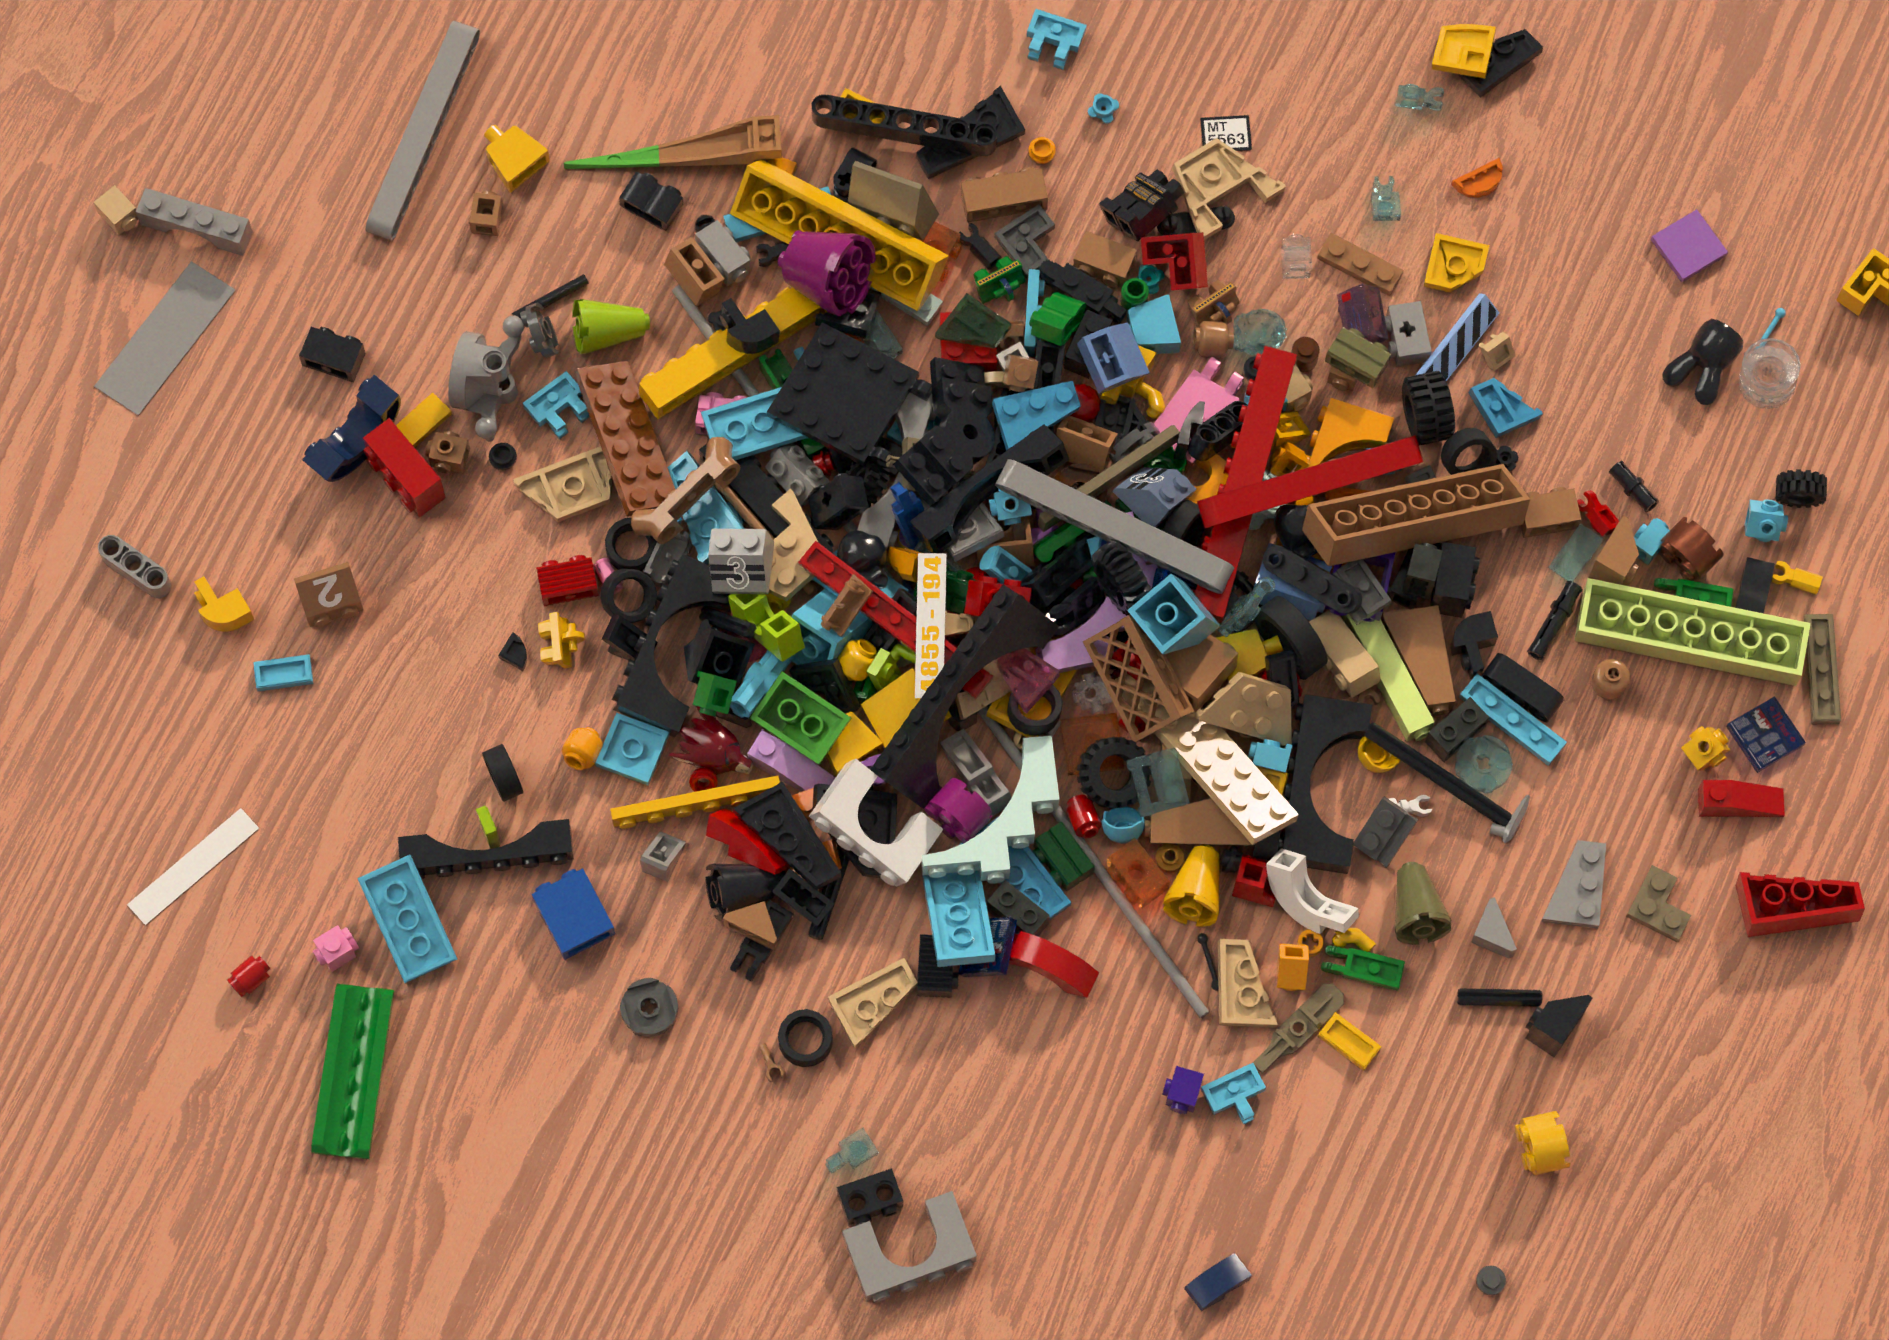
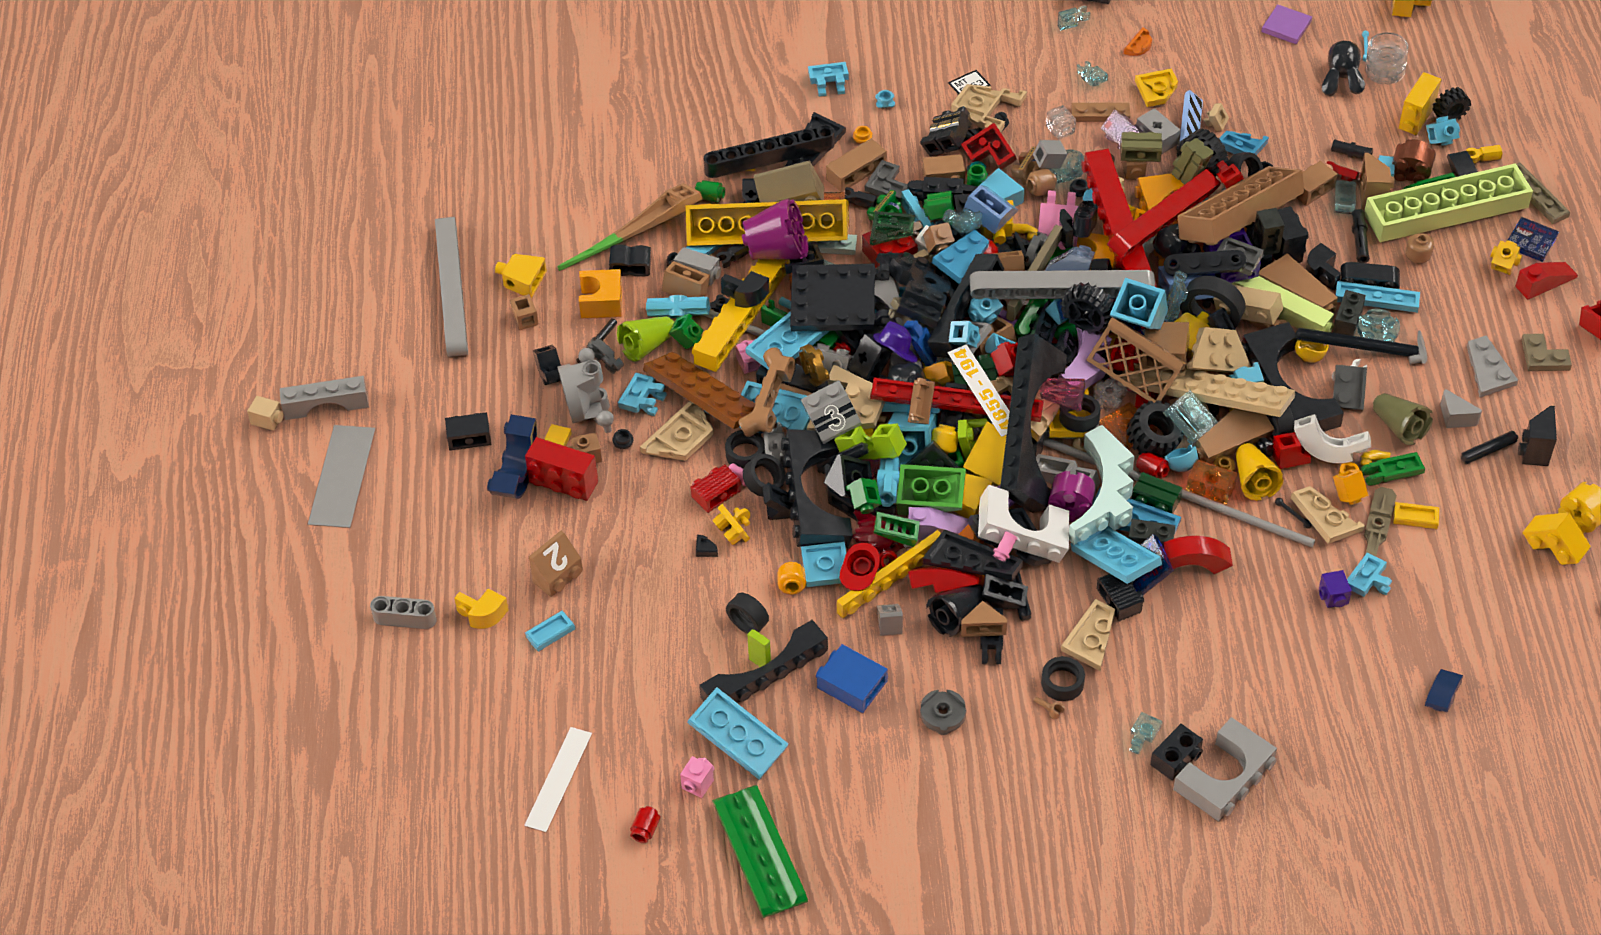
camera: 25 degrees left, 20 degrees down
(471, 308) = (547, 363): none -> black brick
(598, 242) = (606, 291): none -> light orange piece
(656, 343) = (686, 331): none -> green brick
(659, 780) = (859, 567): none -> red piece
(667, 301) = (677, 306): none -> medium azure piece
(745, 767) = (903, 538): none -> green slope
(762, 481) = (812, 363): none -> pearl gold plate
(805, 143) = (711, 190): none -> green brick
(826, 849) = (1005, 546): none -> bright pink pin
(873, 503) = (897, 339): none -> dark purple piece
(959, 542) = (970, 334): none -> medium azure brick
(1063, 362) = (964, 221): none -> clear light blue hair
(1239, 310) = (1050, 154): none -> light grey brick
(1399, 418) = (1192, 160): none -> olive brick
(1434, 460) = (1228, 175): none -> red plate
(1483, 1162) = (1560, 535): none -> yellow brick
(1760, 466) = (1419, 103): none -> yellow brick

